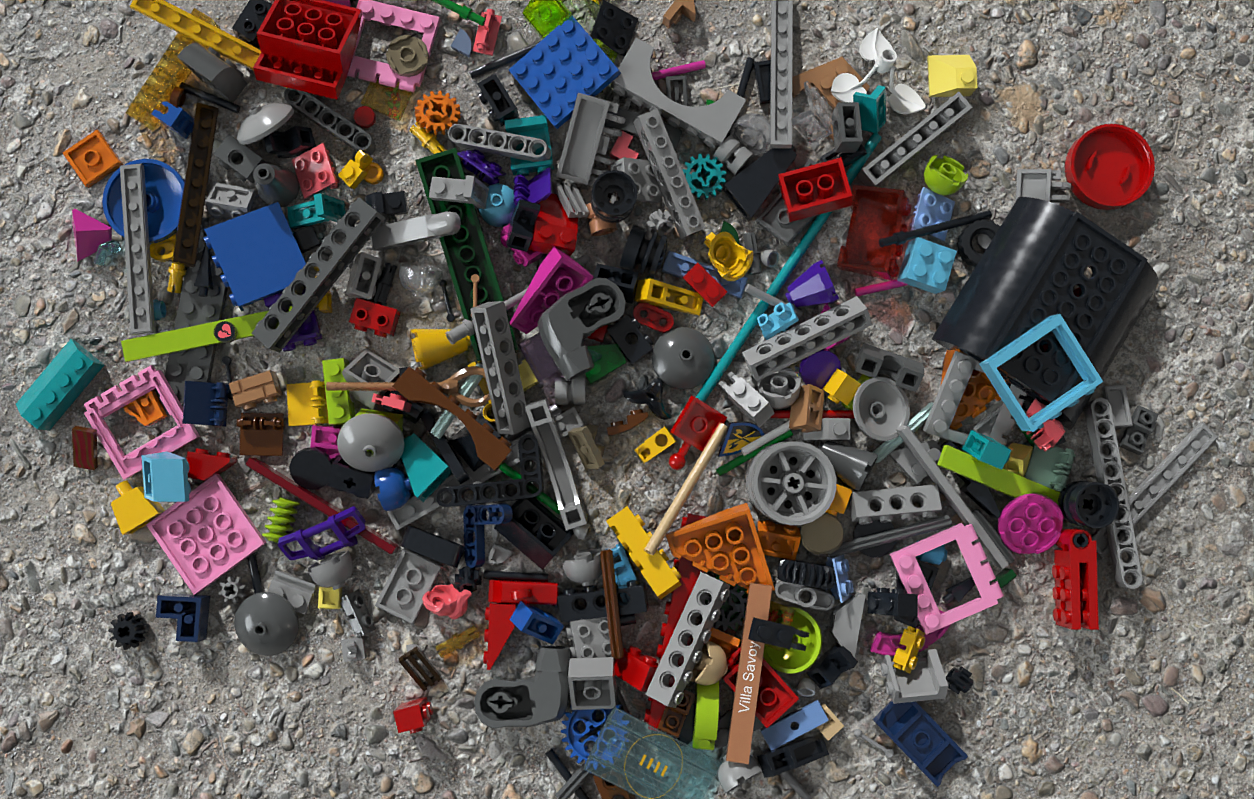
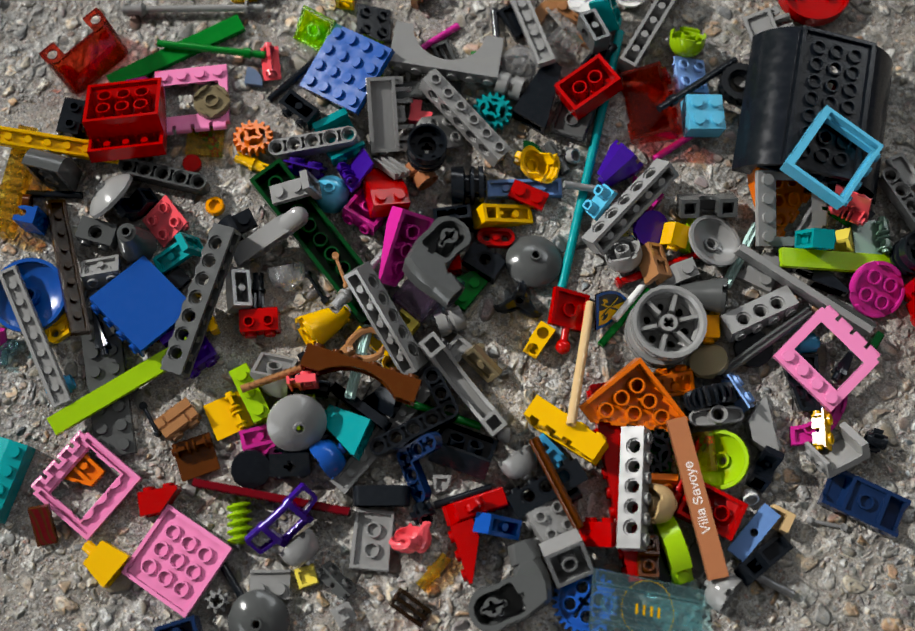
camera: 15 degrees left, 10 degrees down
(165, 477) = (126, 520): medium azure slope -> none
(176, 276) = (75, 348): yellow pin -> none
(205, 403) = (138, 446): dark blue hinge -> none
(225, 332) = (136, 378): tile -> none
(354, 171) = (199, 210): yellow plate -> none
(522, 225) = (358, 198): black brick -> none
(634, 419) = (512, 326): reddish brown slope -> none
(660, 222) = (471, 158): light grey gear -> none
(747, 400) = (601, 273): light grey hinge -> none
(776, 634) = (706, 455): black hinge -> none
(892, 603) = (792, 395): black brick -> none

